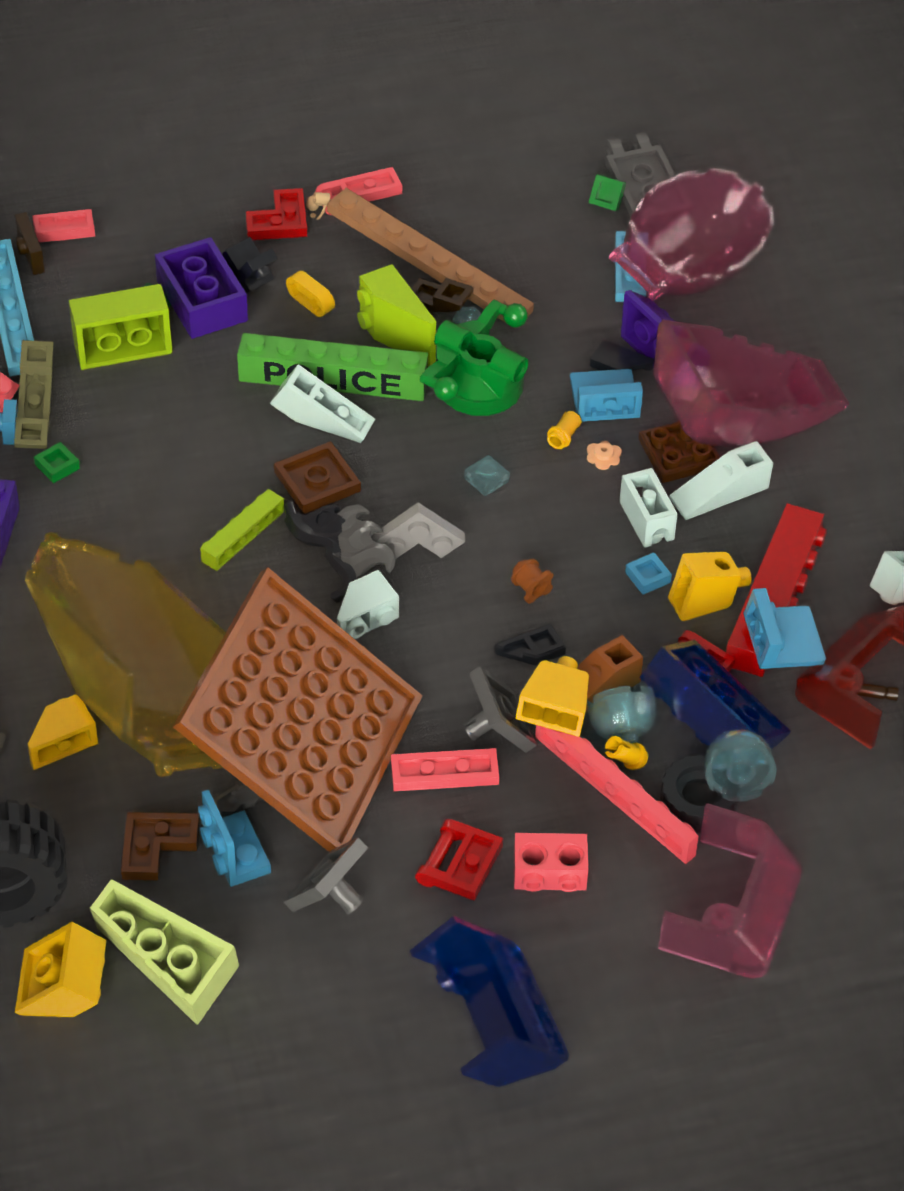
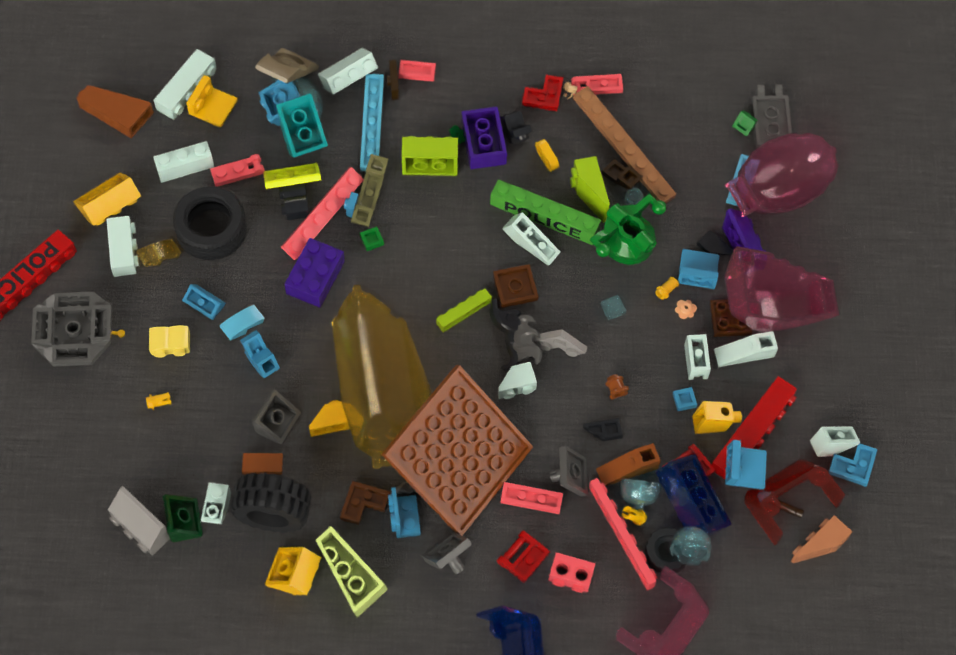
camera: 15 degrees right, 15 degrees up
(555, 696) = (603, 474): yellow torso -> none

